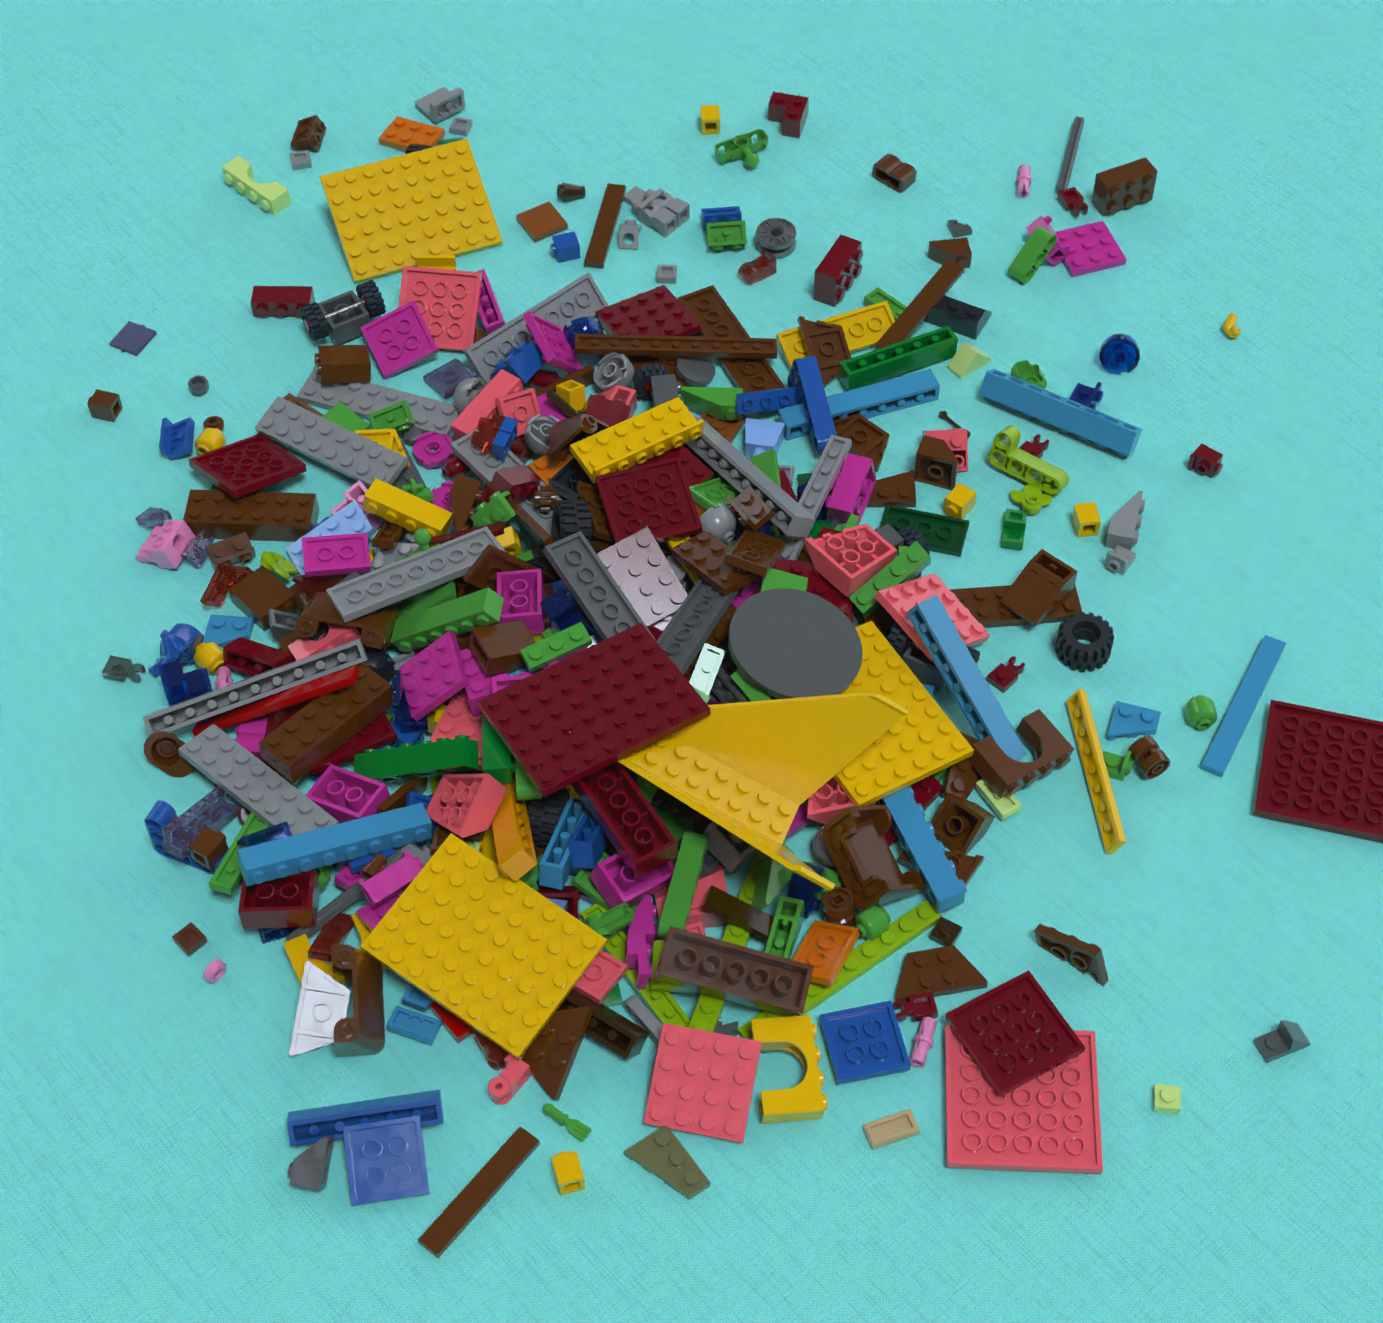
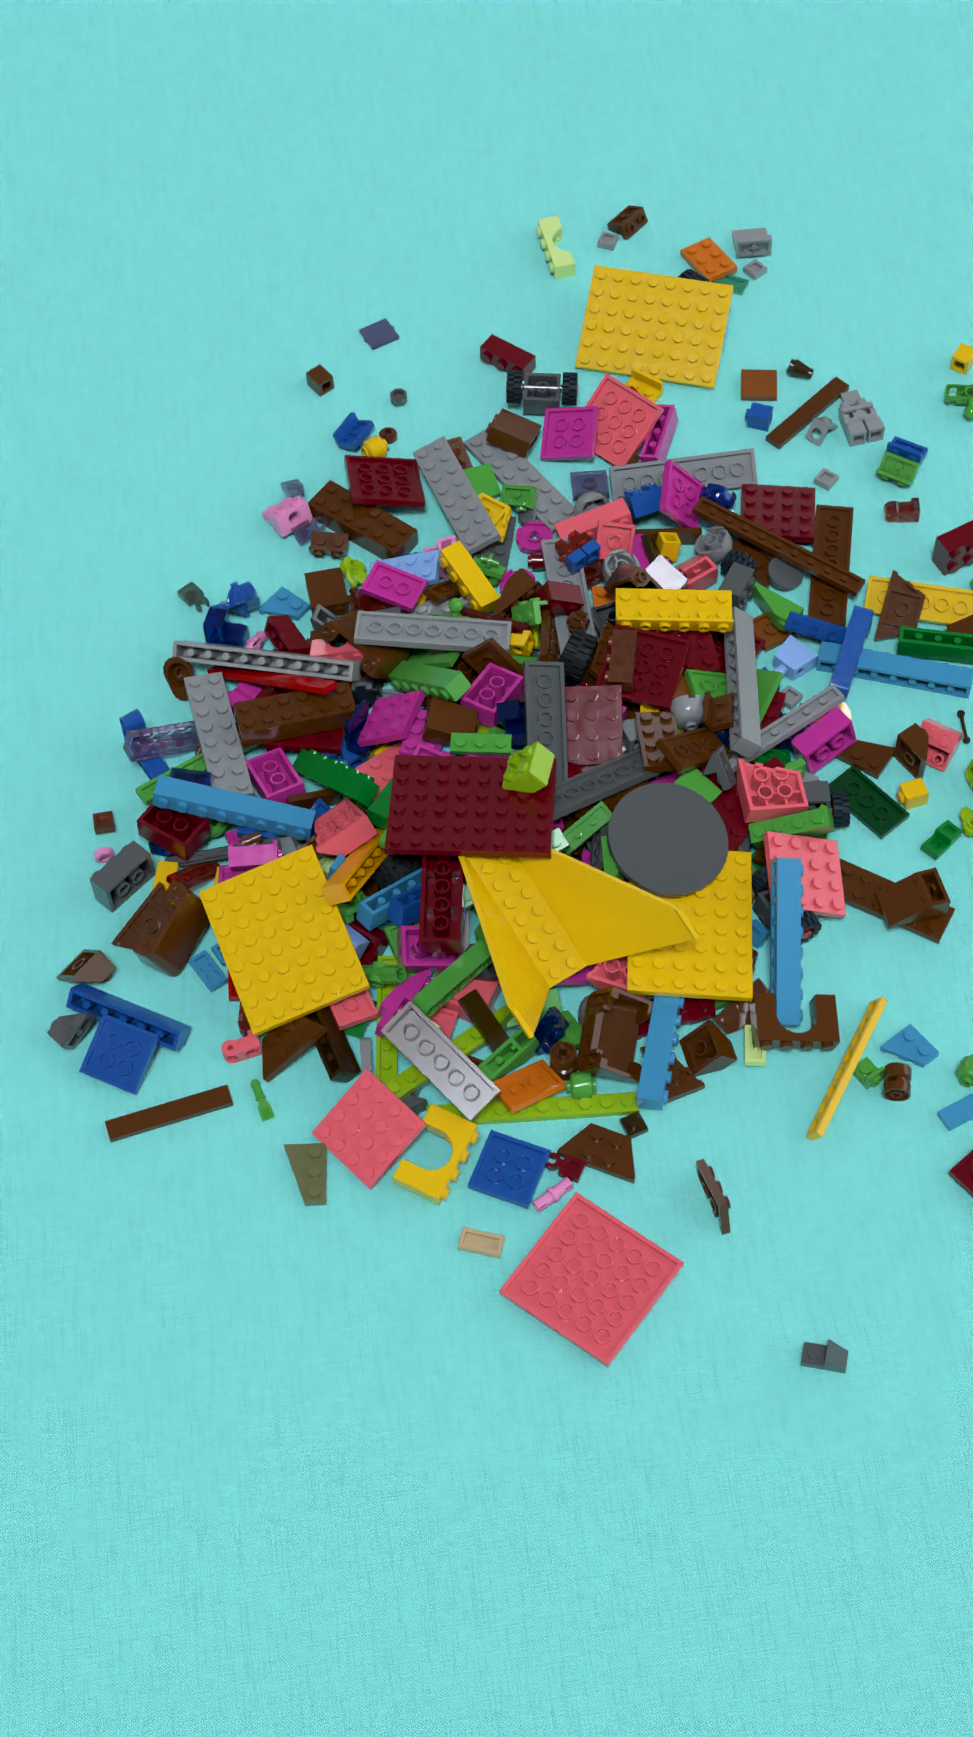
camera: 35 degrees right, 5 degrees up
(208, 847) = (155, 762): reddish brown brick -> none
(209, 656) = (256, 618): yellow head -> none
(223, 579) = (304, 563): clear red plate -> none
(254, 979) = (122, 876): none -> dark grey brick
(282, 1093) = (88, 967): none -> reddish brown slope
(487, 843) = (335, 865): none -> dark azure tile
(543, 378) = (658, 520): dark red brick -> none
(568, 1172) = (234, 1136): yellow brick -> none
(628, 503) = (622, 659): none -> copper brick
(628, 642) = (528, 769): none -> lime slope
(777, 237) = (938, 491): flat silver wheel -> none
(791, 552) = (720, 764): none -> dark grey slope
(866, 437) = (873, 700): reddish brown wing -> none
(1005, 676) = (837, 954): dark red plate -> none
(1014, 1033) = (619, 1227): dark red plate -> none
(1086, 628) = (923, 948): black tyre -> none
(1167, 1098) = (701, 1344): yellowish green plate -> none

